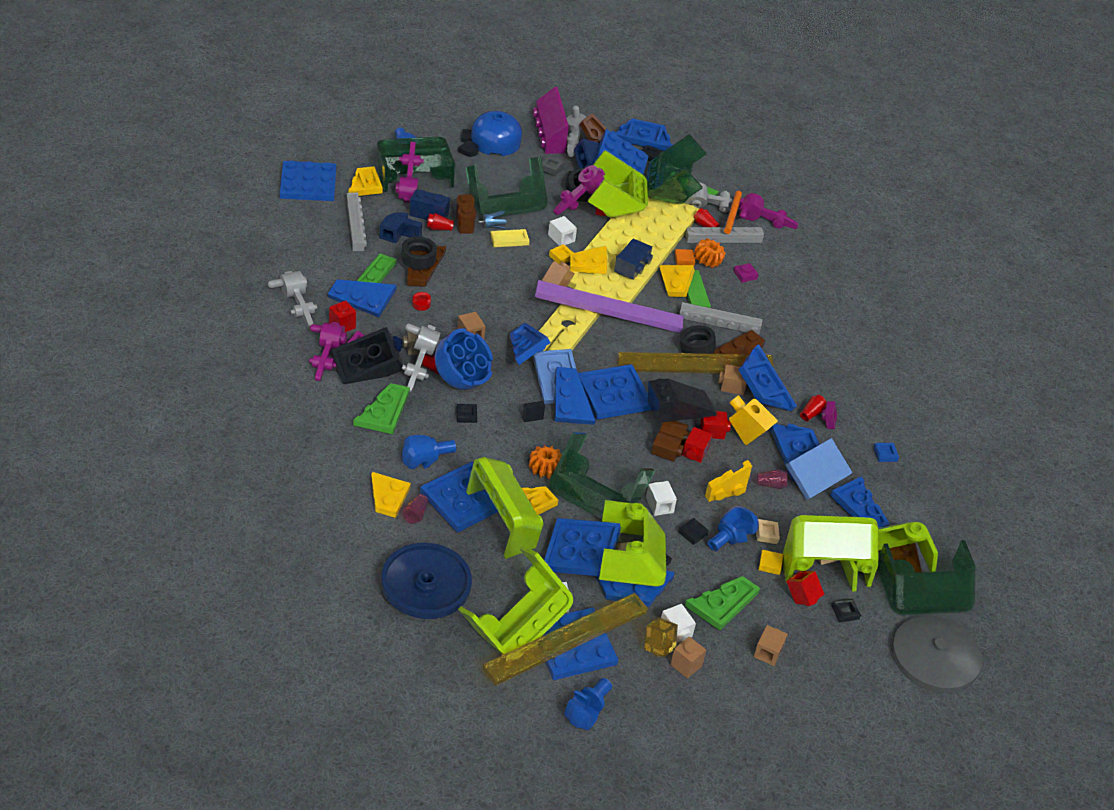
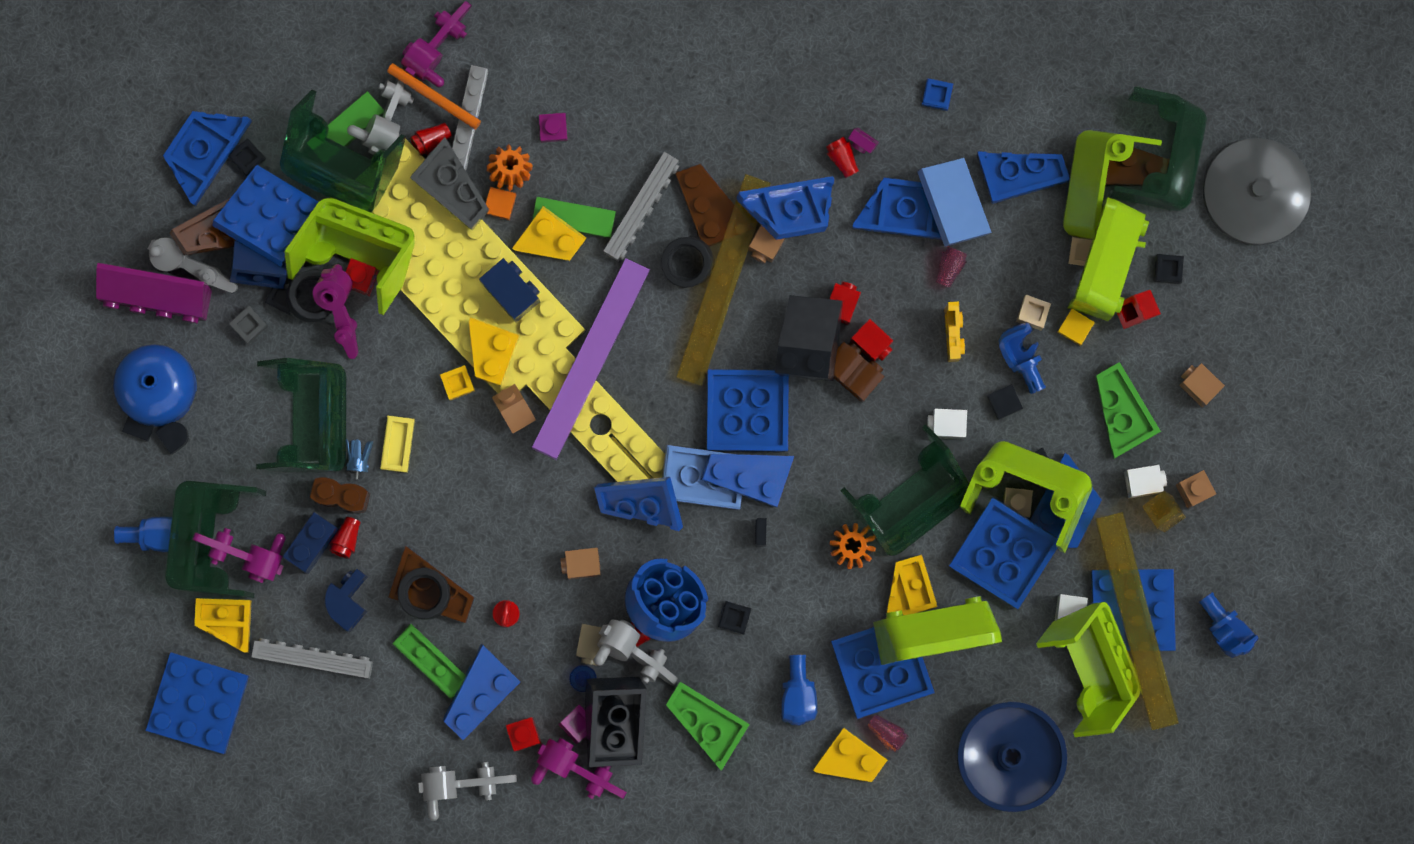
camera: 65 degrees left, 40 degrees up
(562, 231) = (408, 365): white brick -> none
(684, 225) = (450, 185): none -> dark grey wing
(750, 419) = (857, 263): yellow torso -> none

